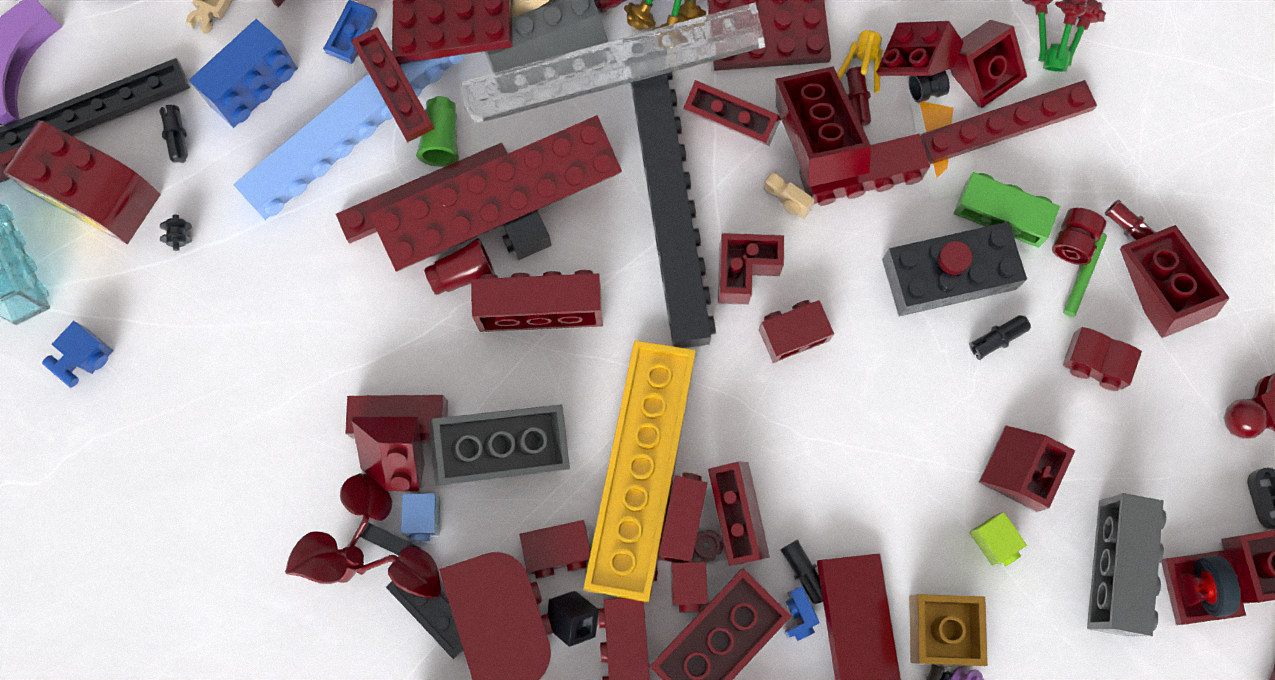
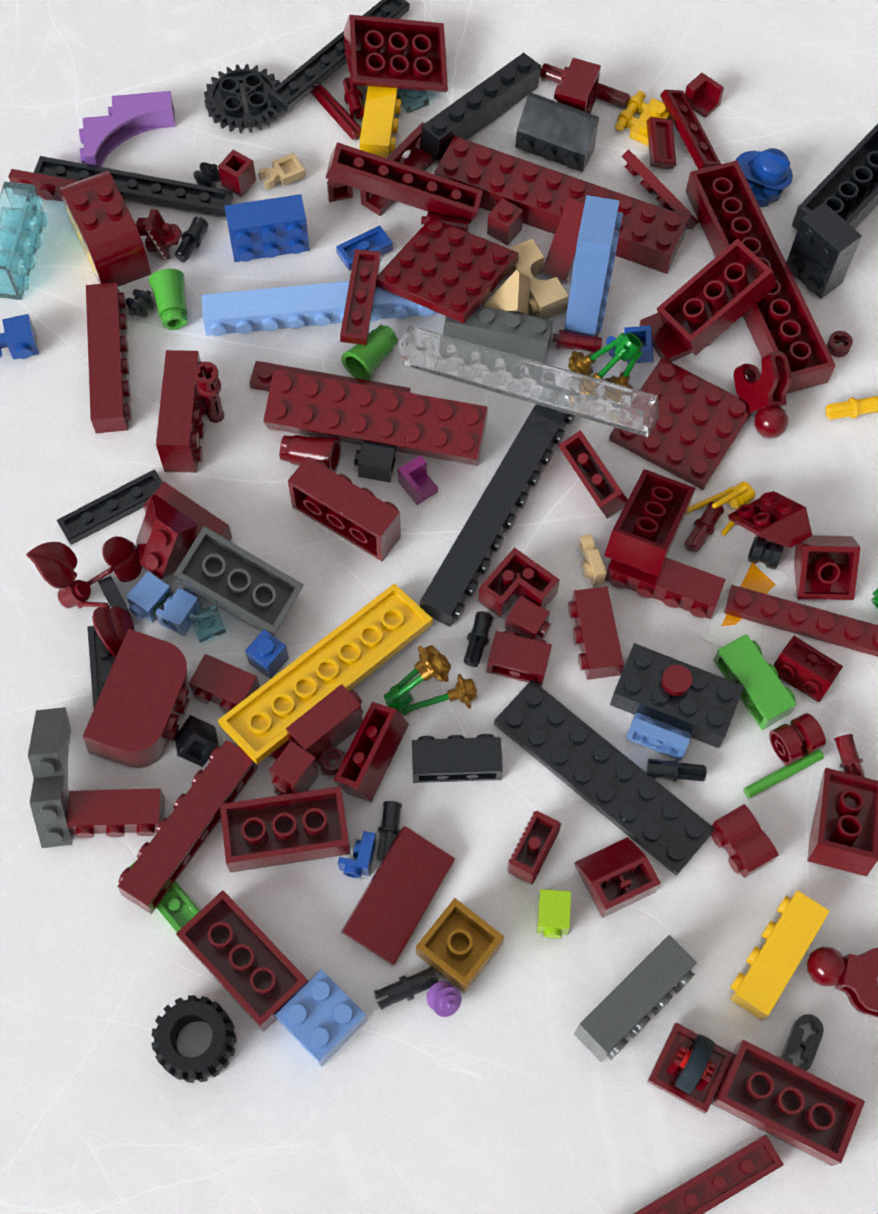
camera: 35 degrees right, 10 degrees down
(138, 57) = (207, 174): none -> black wheel
(139, 151) = (158, 233): none -> dark red hips
(167, 36) = (237, 173): none -> dark red brick
(186, 308) = (106, 358): none -> dark red brick
(202, 207) = (170, 297): none -> bright green plant
(308, 313) = (180, 414): none -> dark red brick
(310, 453) = (109, 508): none -> black tile
(323, 276) = (209, 387): none -> dark red pin
(458, 507) = (177, 611): none -> medium blue brick
(494, 501) = (207, 623): none -> clear light blue plate
(573, 490) = (267, 654): none -> blue brick
(577, 228) = (415, 480): none -> magenta panel
(746, 339) = (478, 638): none -> black axle
(746, 397) = (430, 665): none -> plant
(777, 290) = (528, 619): none -> dark red brick
(813, 462) = (457, 759): none -> black brick
(843, 260) = (596, 633): none -> dark red brick
(942, 495) = (533, 847): none -> dark red brick
(943, 385) = (604, 777): none -> black plate
(965, 315) = (658, 736): none -> medium blue bracket
(1038, 166) = (806, 668): none -> dark red bracket
(1201, 436) = (779, 955): none -> yellow brick

